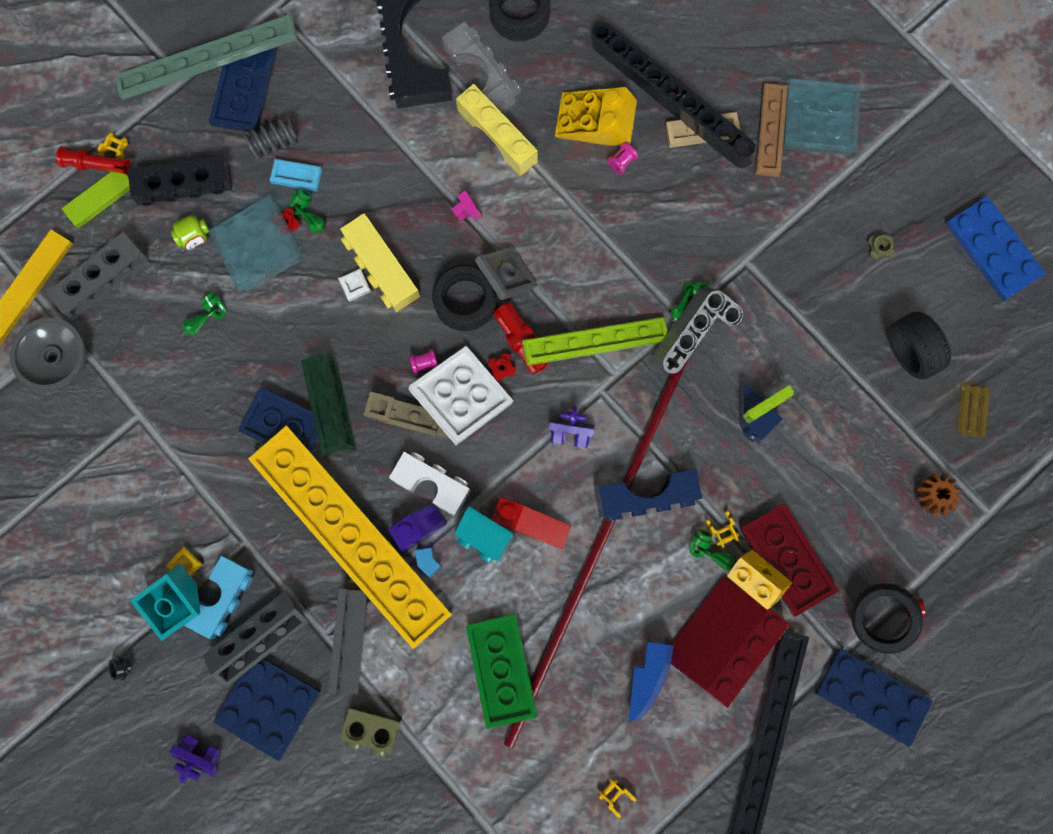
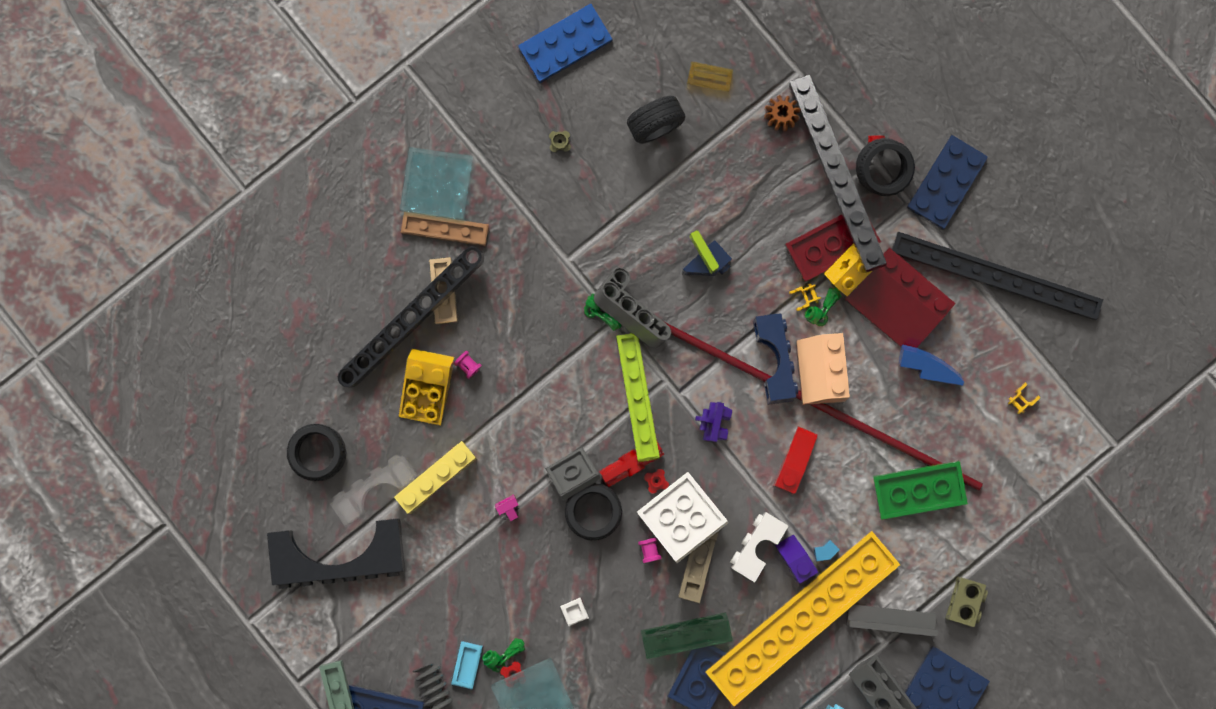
camera: 90 degrees left, 5 degrees up
(379, 262) = (556, 588): light yellow brick -> none
(483, 535) = (806, 501): teal slope -> none
(639, 550) = (823, 369): none -> light nougat slope
(872, 560) = (838, 174): none -> plate

